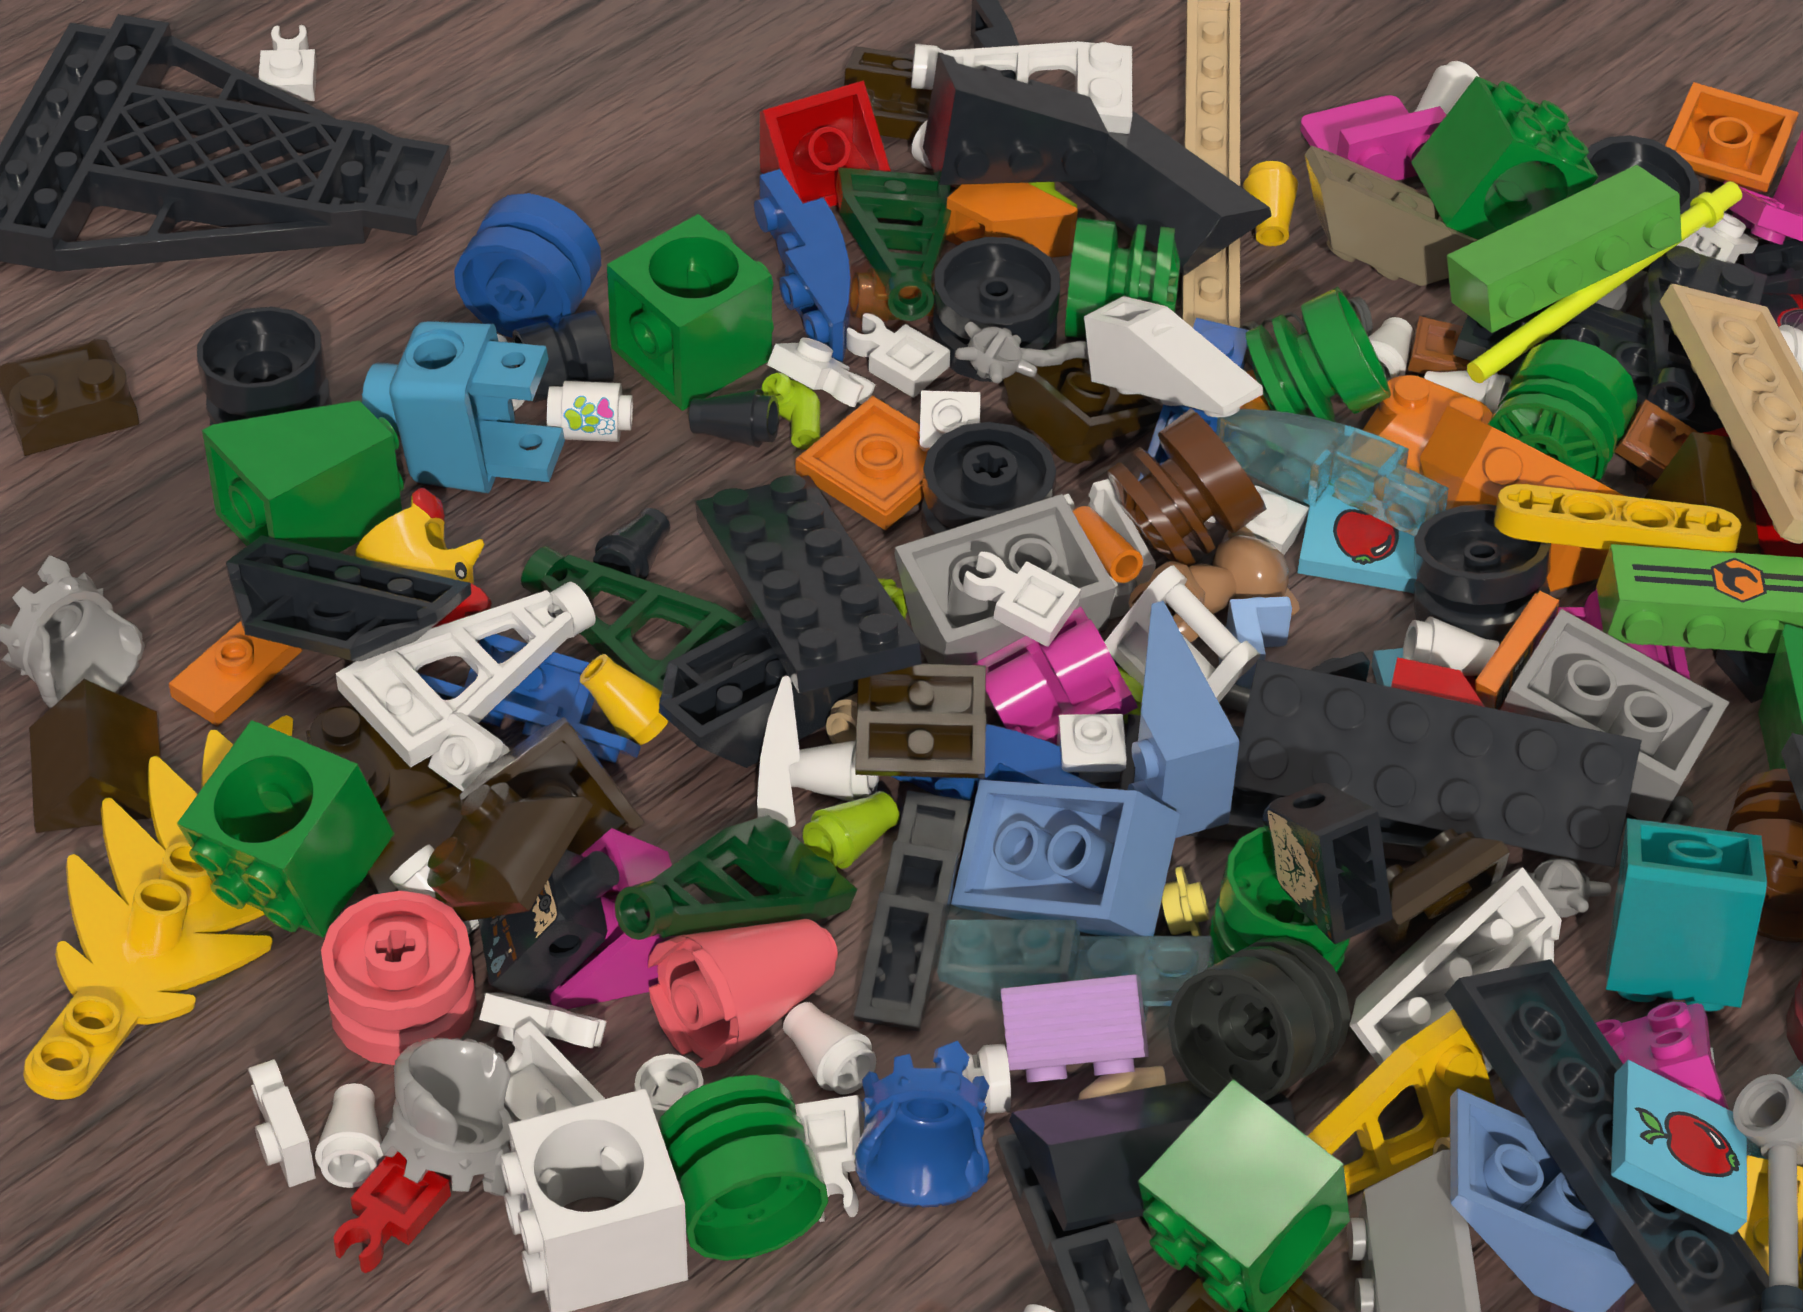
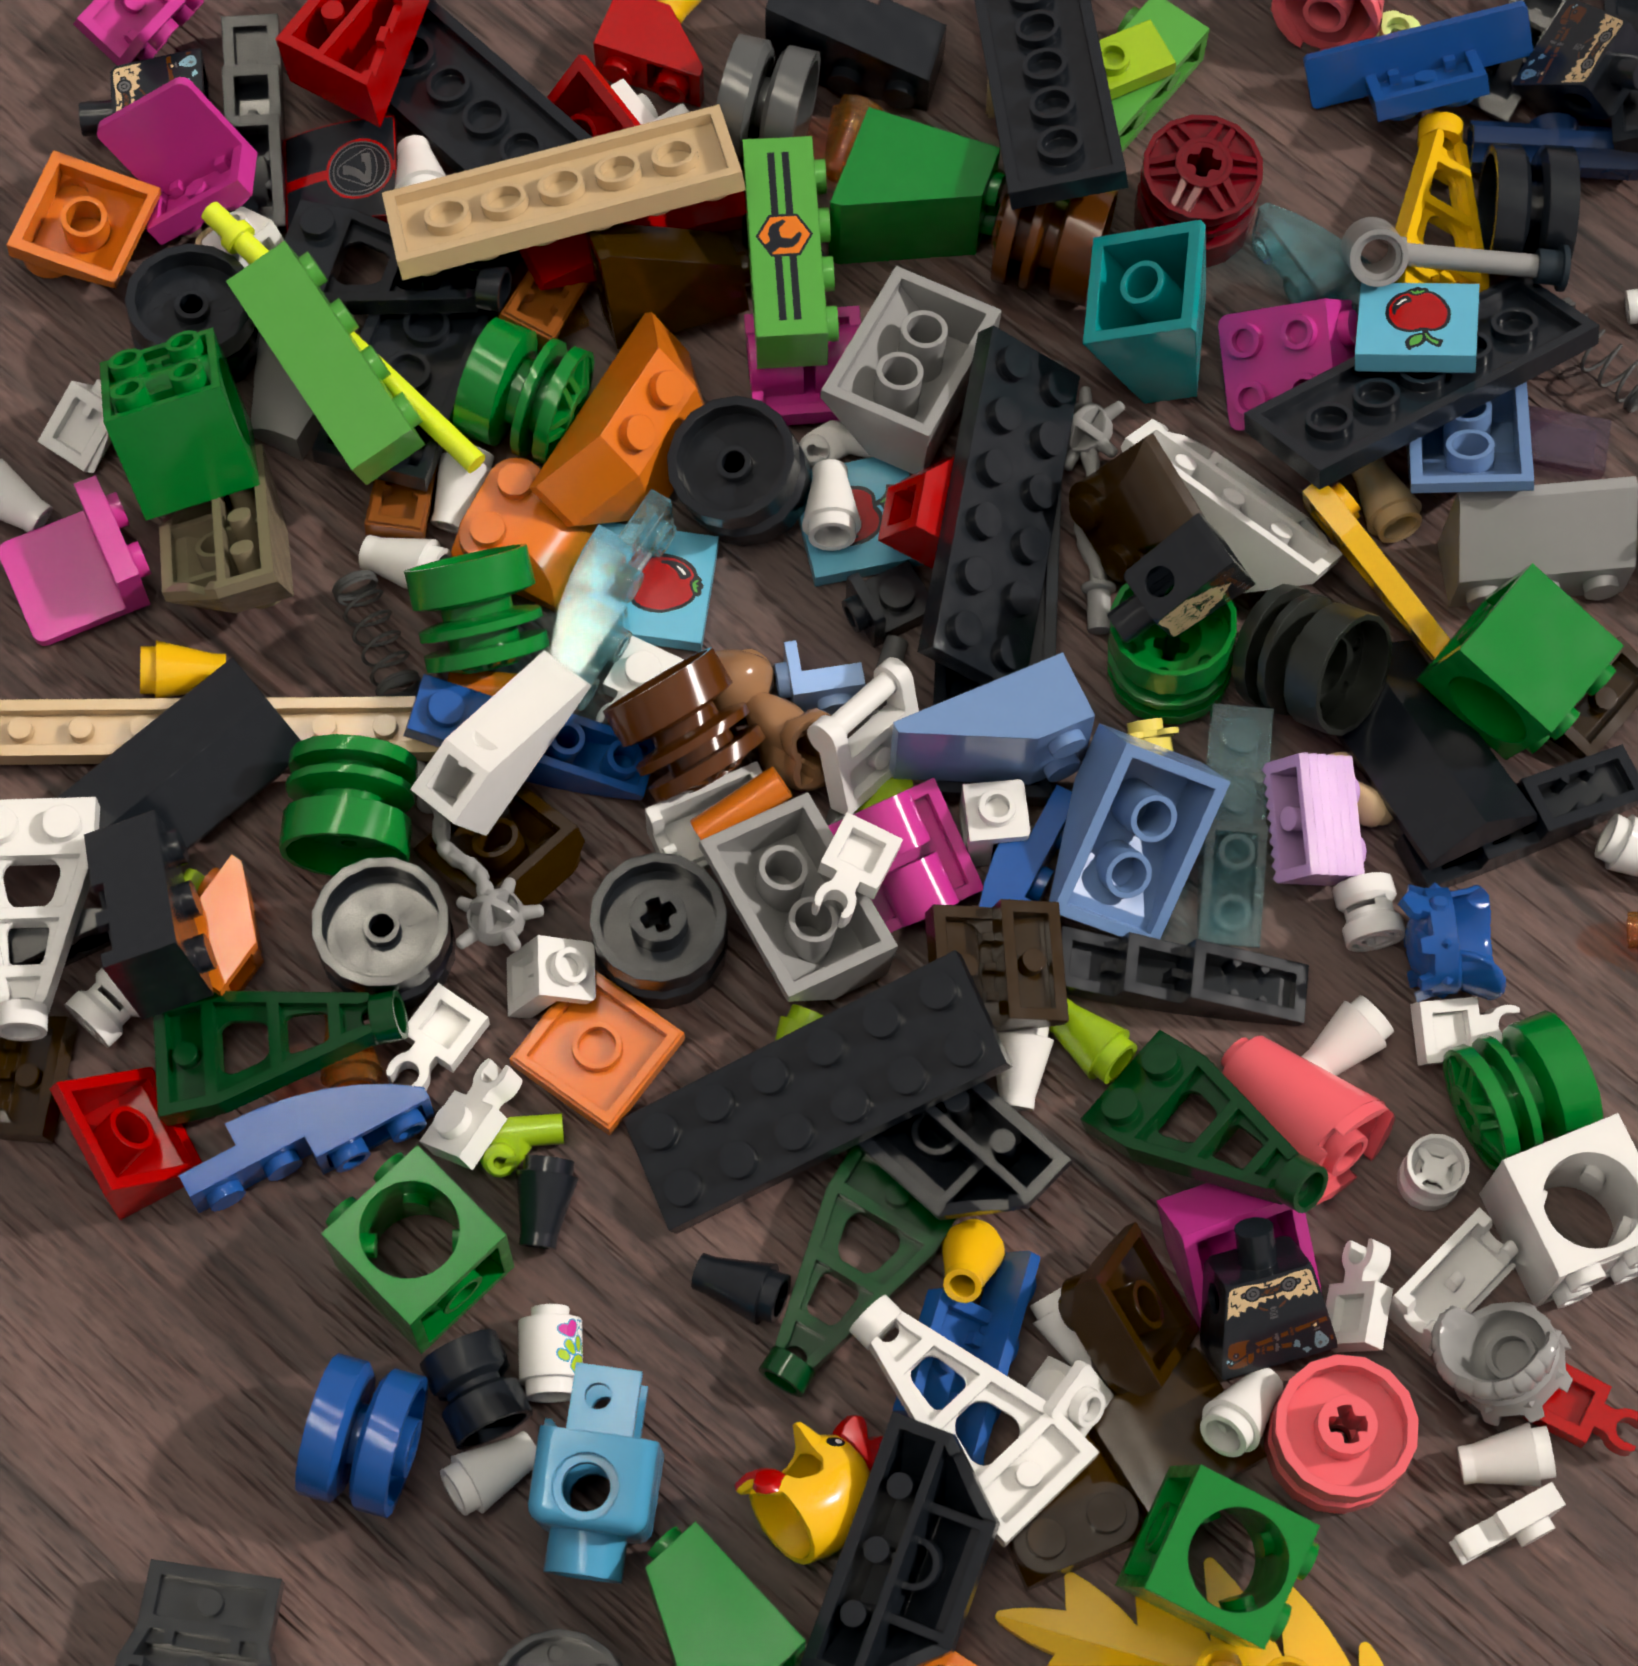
camera: 95 degrees left, 20 degrees up
(503, 851) = (1244, 1321): dark brown slope -> none
(777, 754) = (1048, 1109): white sticker -> none
(1515, 650) = (847, 442): orange tile -> none
(1608, 519) = (708, 335): yellow beam -> none

